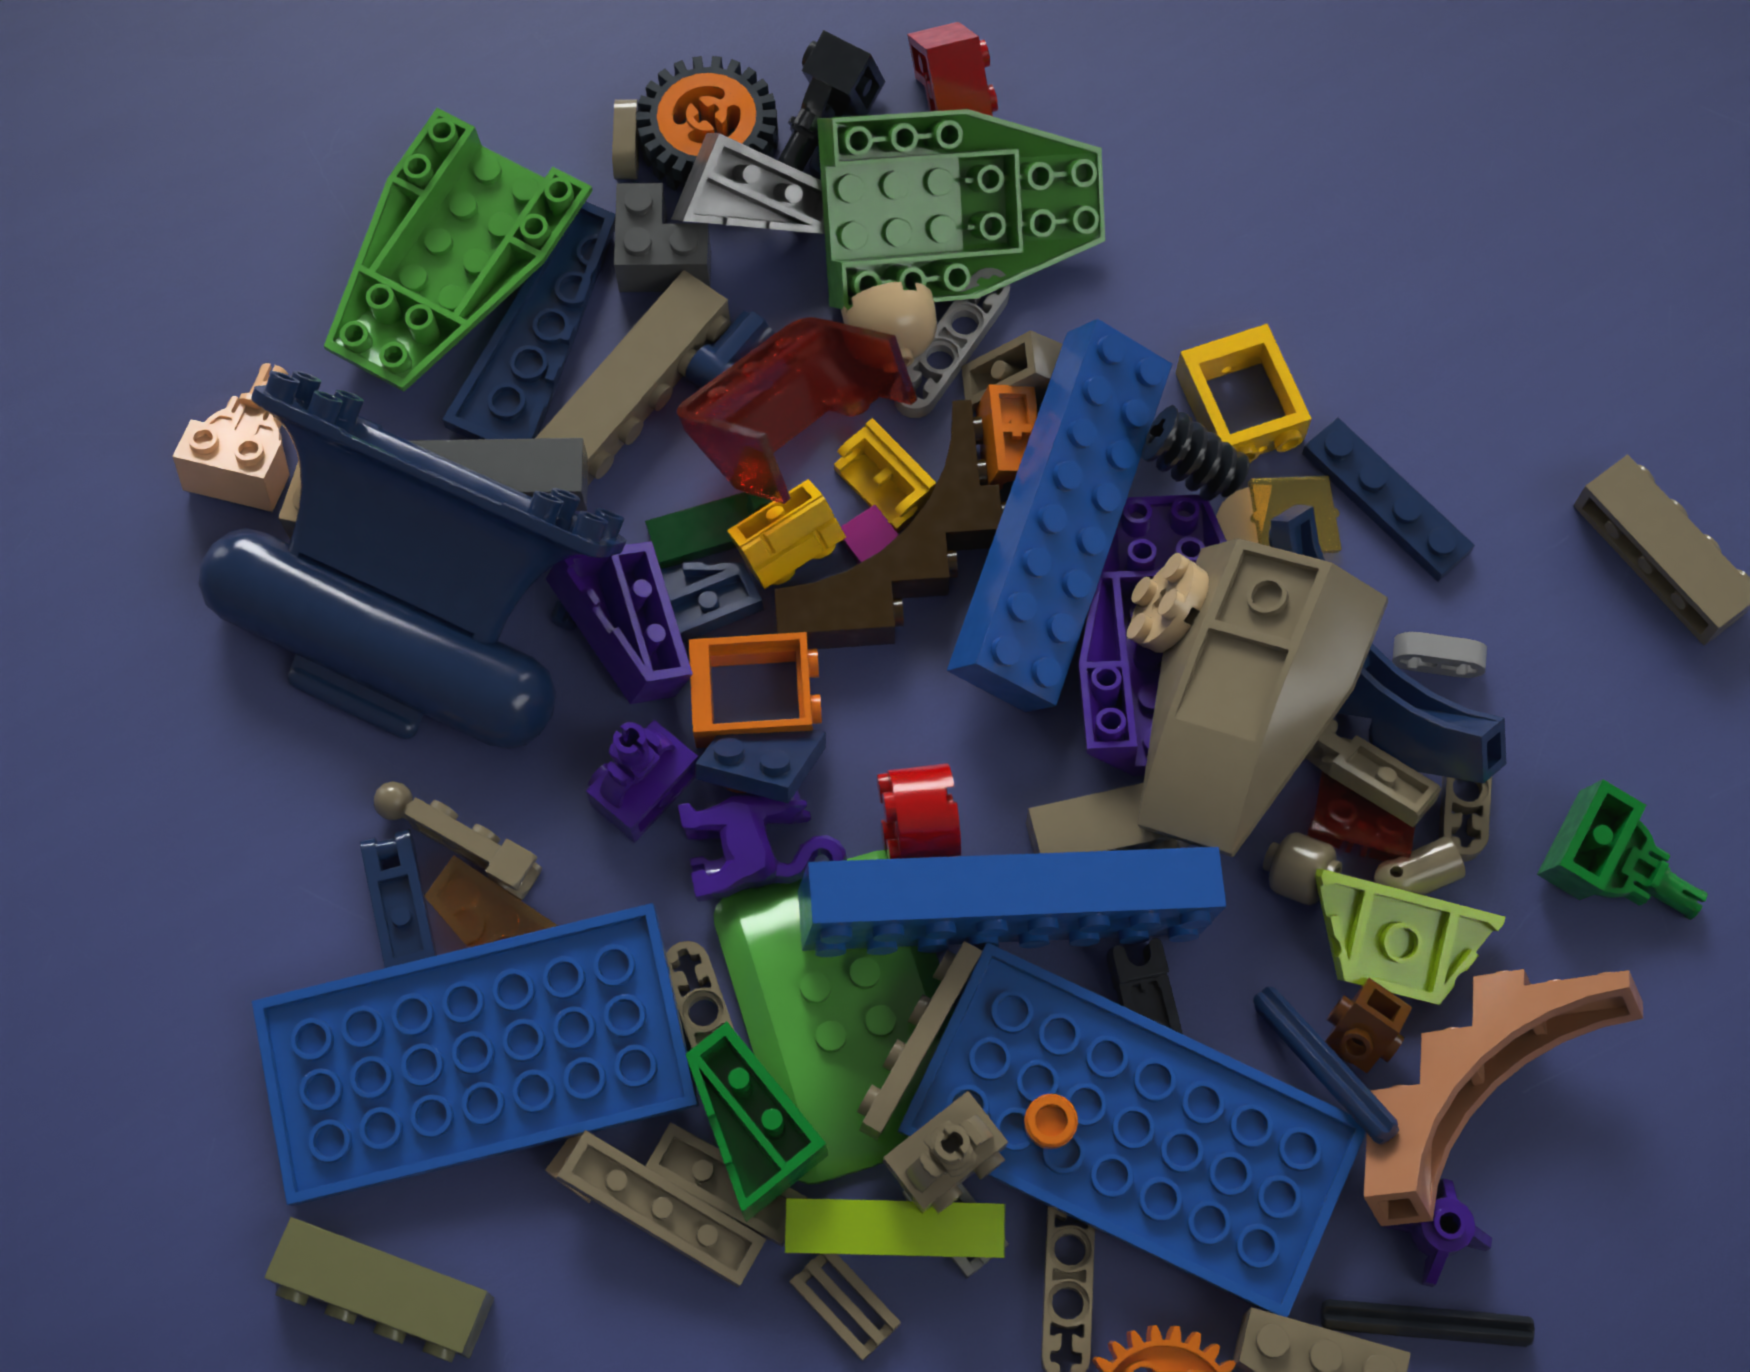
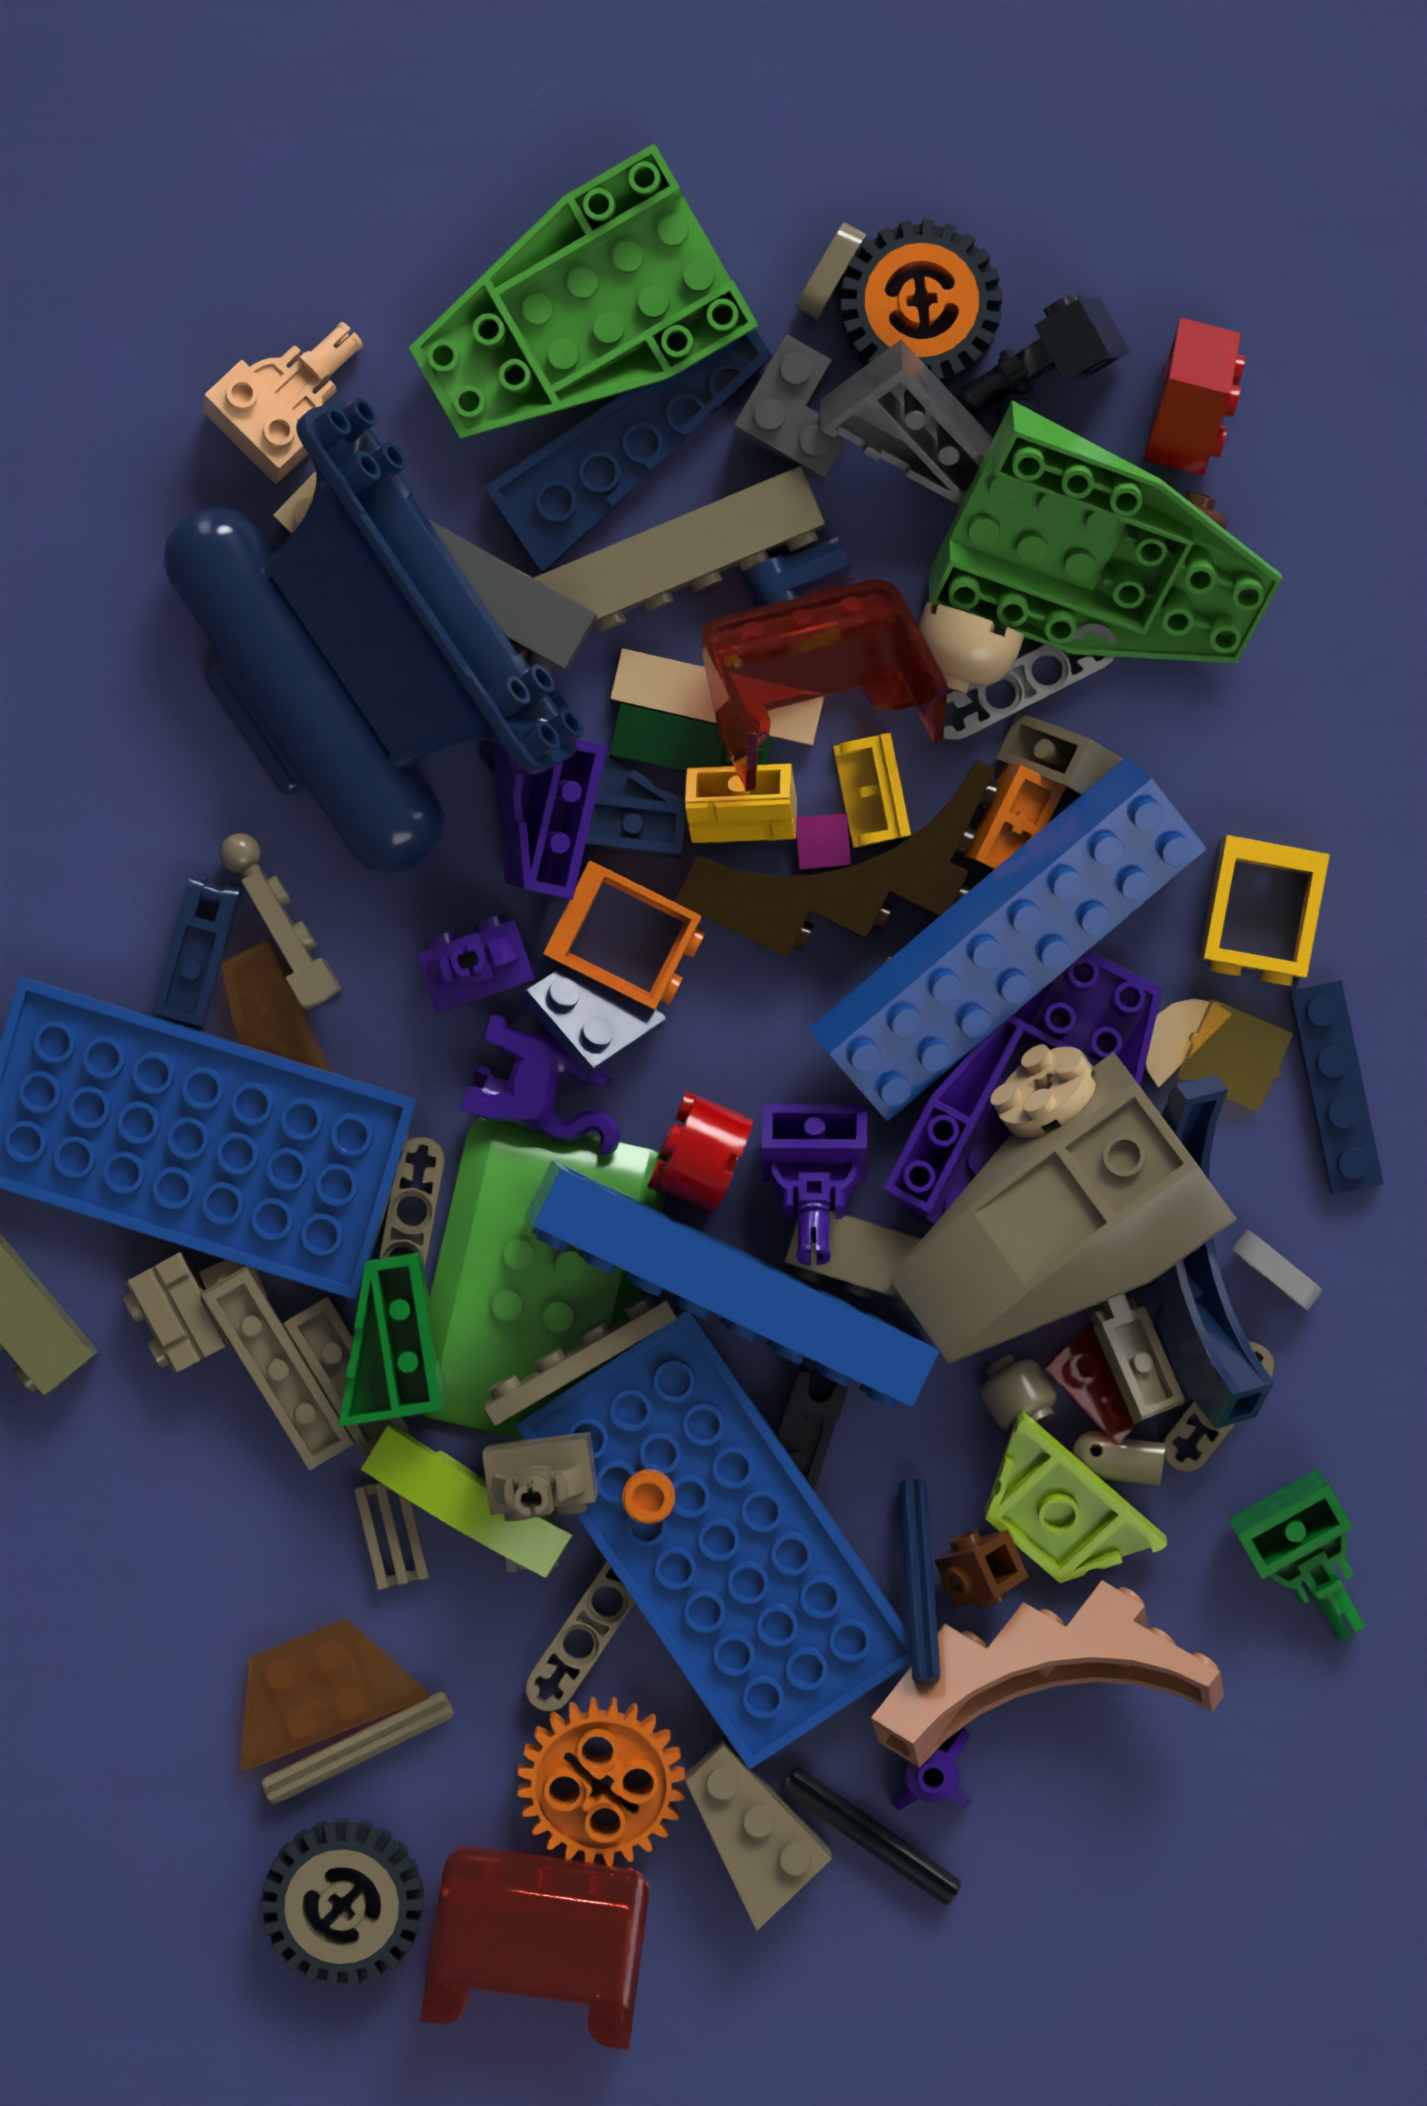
camera: 30 degrees right, 20 degrees up
(544, 1214) = (175, 1313): none -> dark tan brick
(701, 482) = (685, 692): none -> tan tile
(1017, 767) = (814, 1158): none -> dark purple brick
(1194, 455) = (1165, 958): black piece -> none

